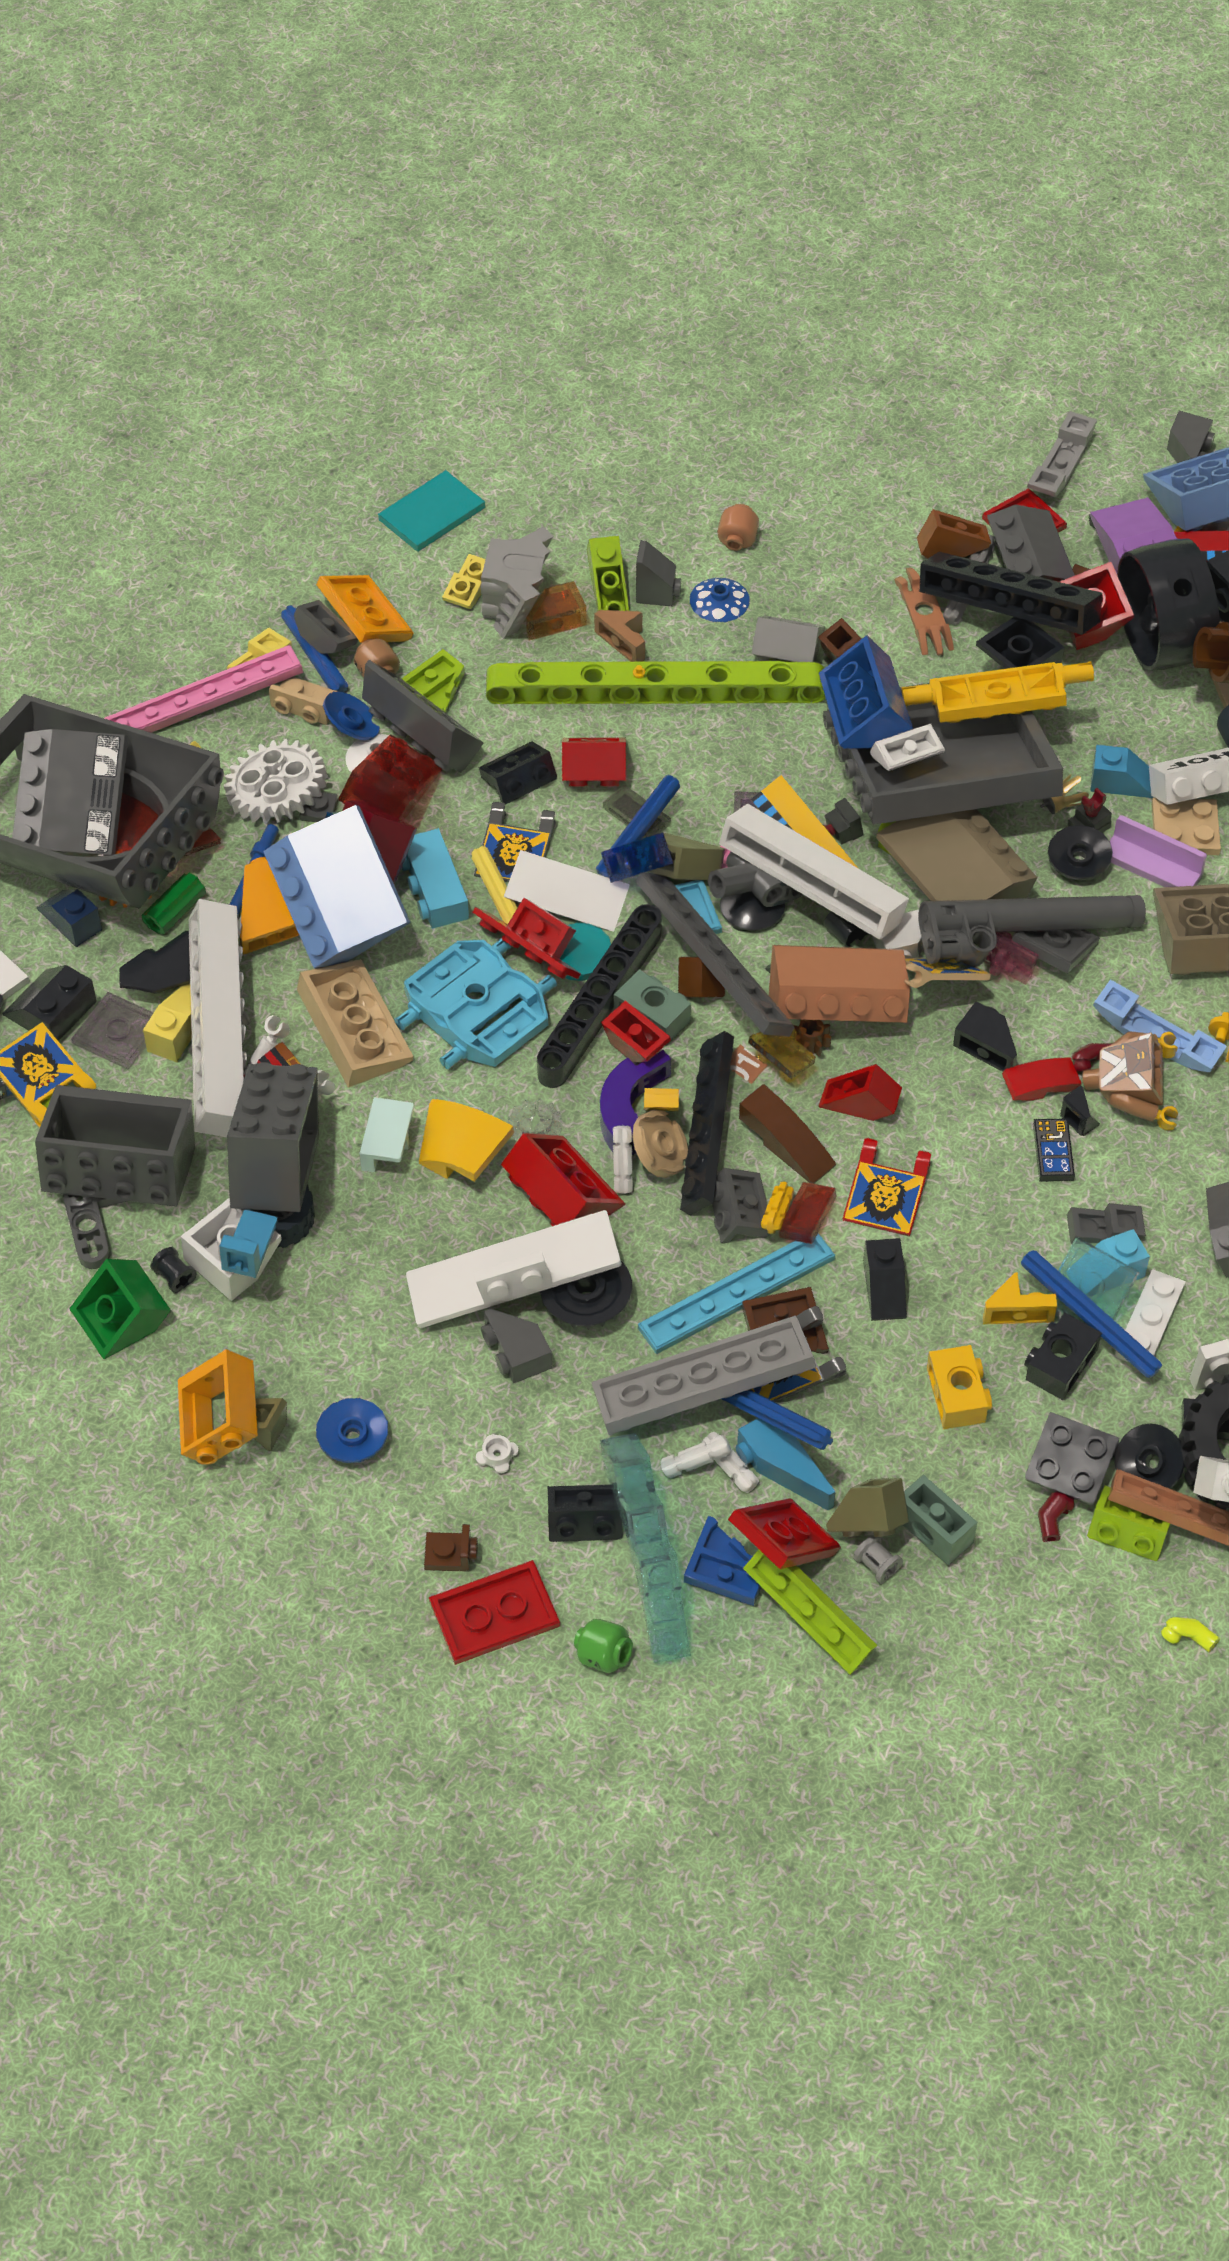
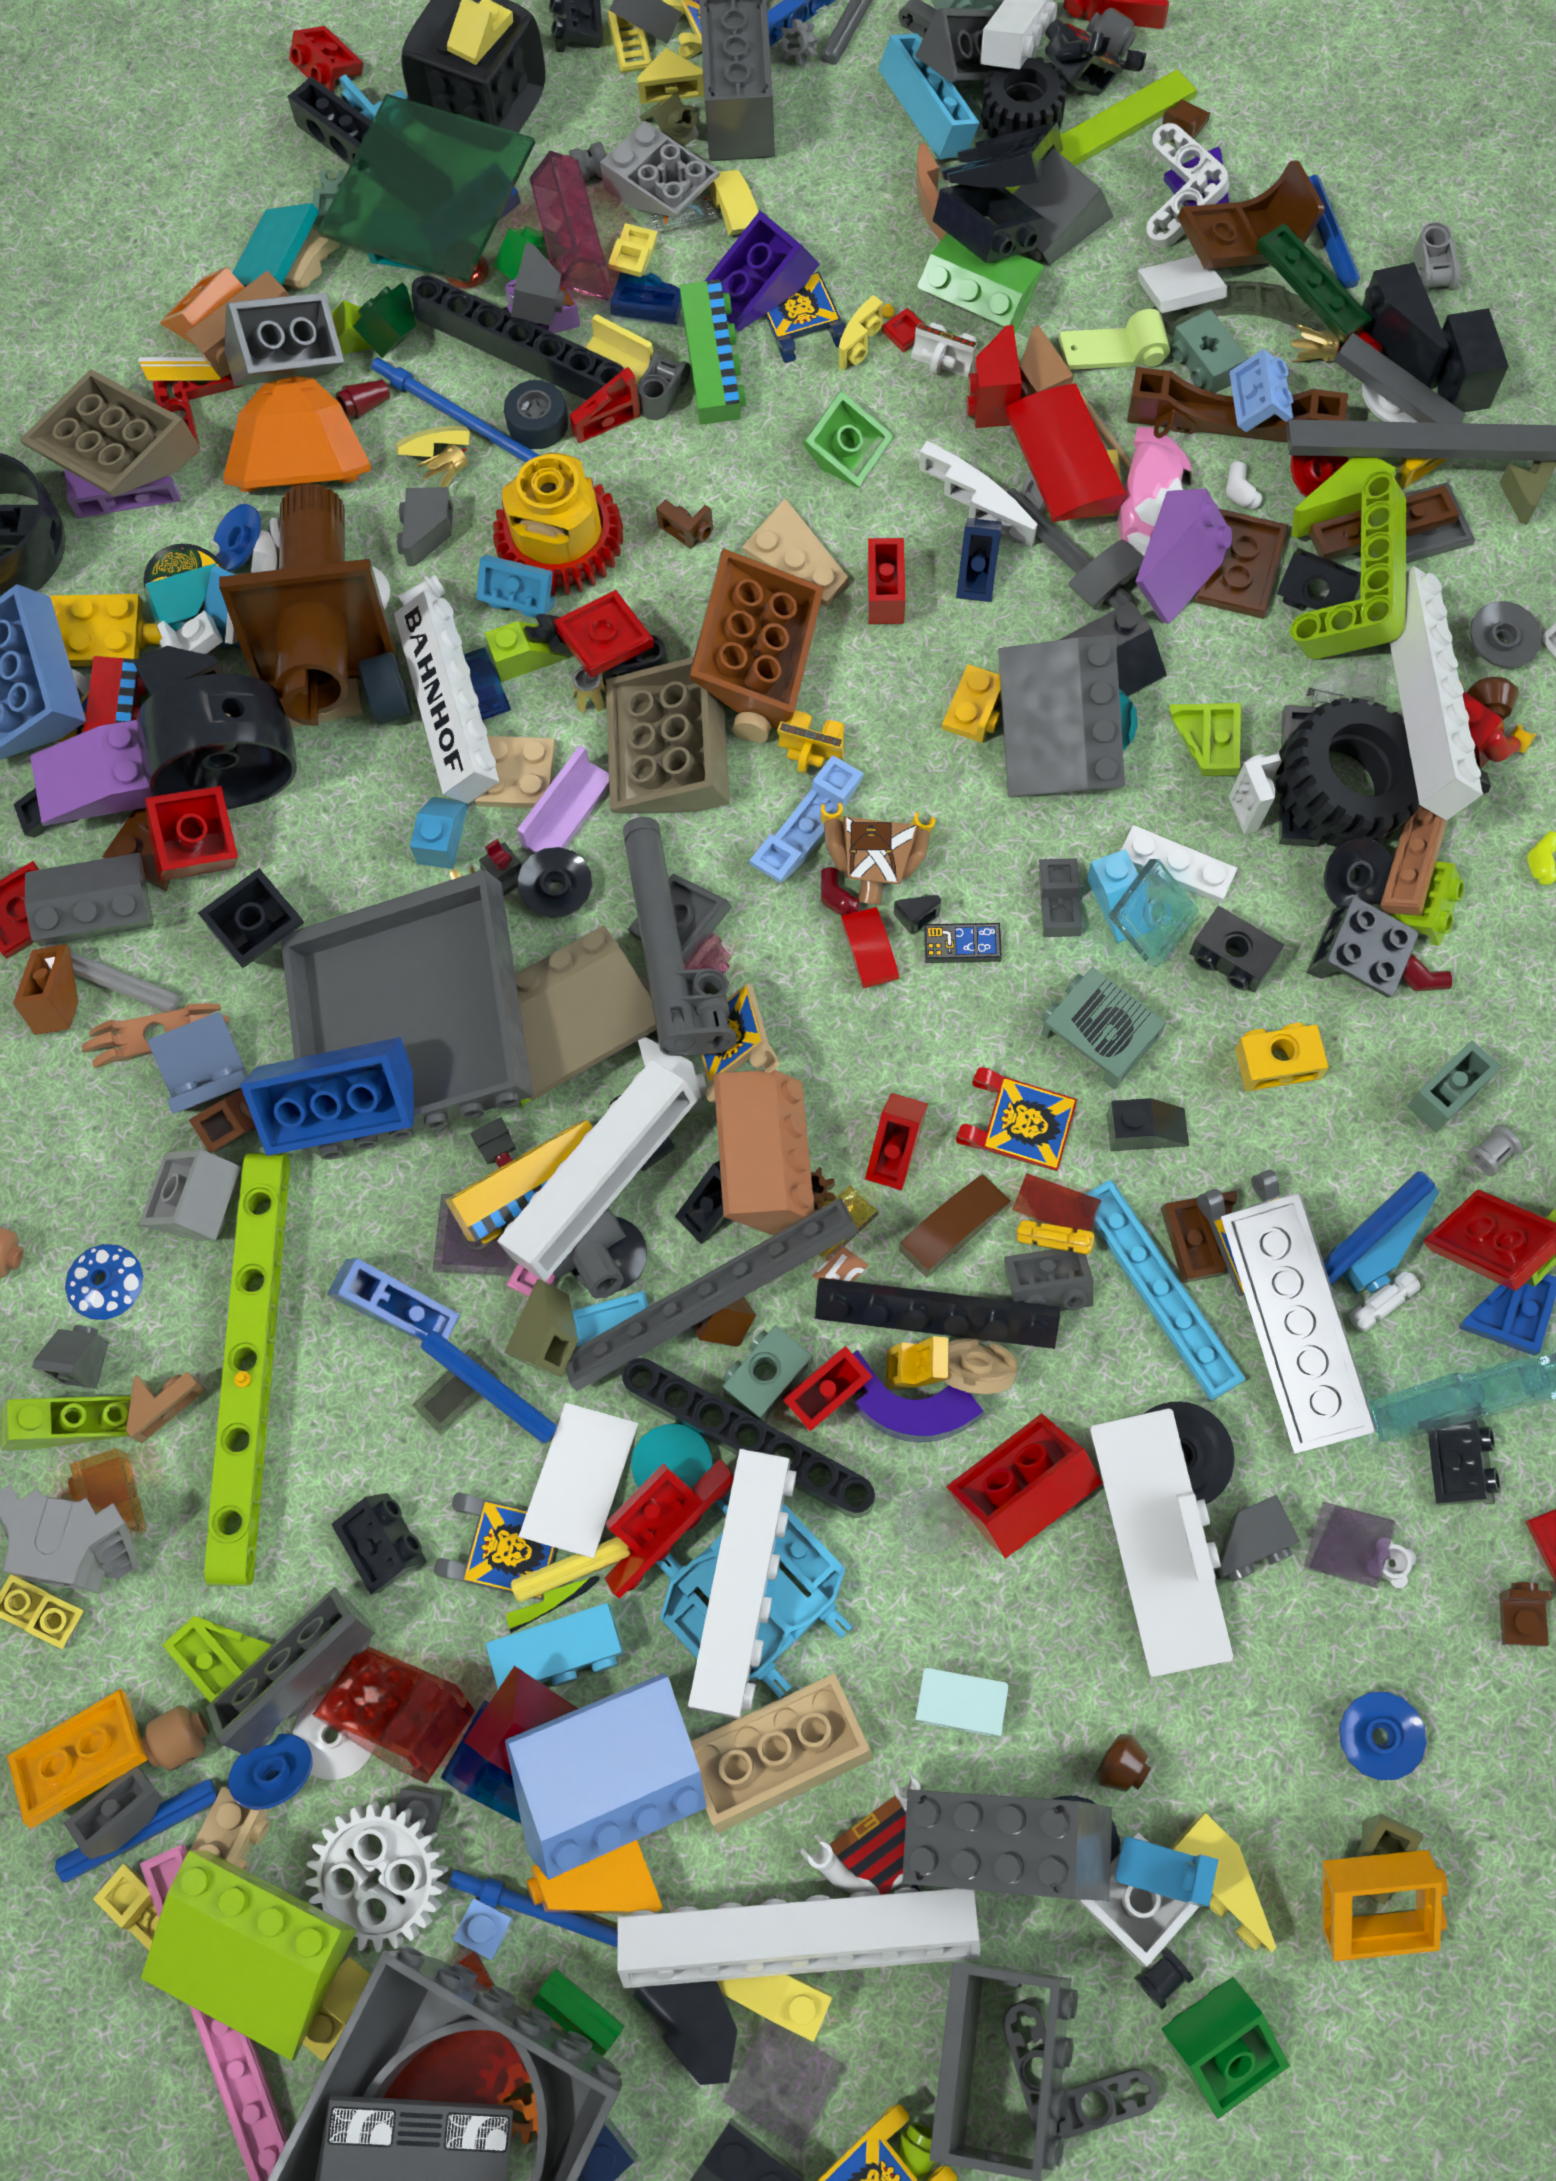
camera: 85 degrees left, 15 degrees up
(230, 699) = (245, 1952): none -> lime slope
(235, 849) = (483, 1929): none -> light blue plate
(248, 1310) = (1232, 1883): none -> light yellow slope
(336, 1244) = (1123, 1765): none -> reddish brown cone
(461, 1139) = (967, 1610): yellow slope -> none
(474, 881) = (552, 1600): none -> lime sticker
(479, 974) = (740, 1585): none -> white brick
(512, 1418) = (1350, 1544): none -> clear purple piece
(594, 760) = (367, 1442): red slope -> none
(622, 1159) = (999, 1410): white axle -> none
(637, 857) = (548, 1388): clear blue slope -> none
(695, 1456) = (1389, 1336): white axle -> none
(705, 764) = (390, 1301): none -> slope
(871, 1506) = (1459, 1150): olive slope -> none
(899, 631) = (198, 1061): none -> sand blue bracket
(907, 747) = (426, 1047): white slope -> none
(975, 1247) = (1104, 1024): none -> sand green panel
(986, 1037) = (816, 998): black slope -> none
(999, 691) = (334, 941): yellow plate -> none
(1010, 1307) = (1173, 995): yellow slope -> none
(1011, 592) = (170, 921): black brick -> none
(1091, 1314) = (1190, 916): blue axle -> none

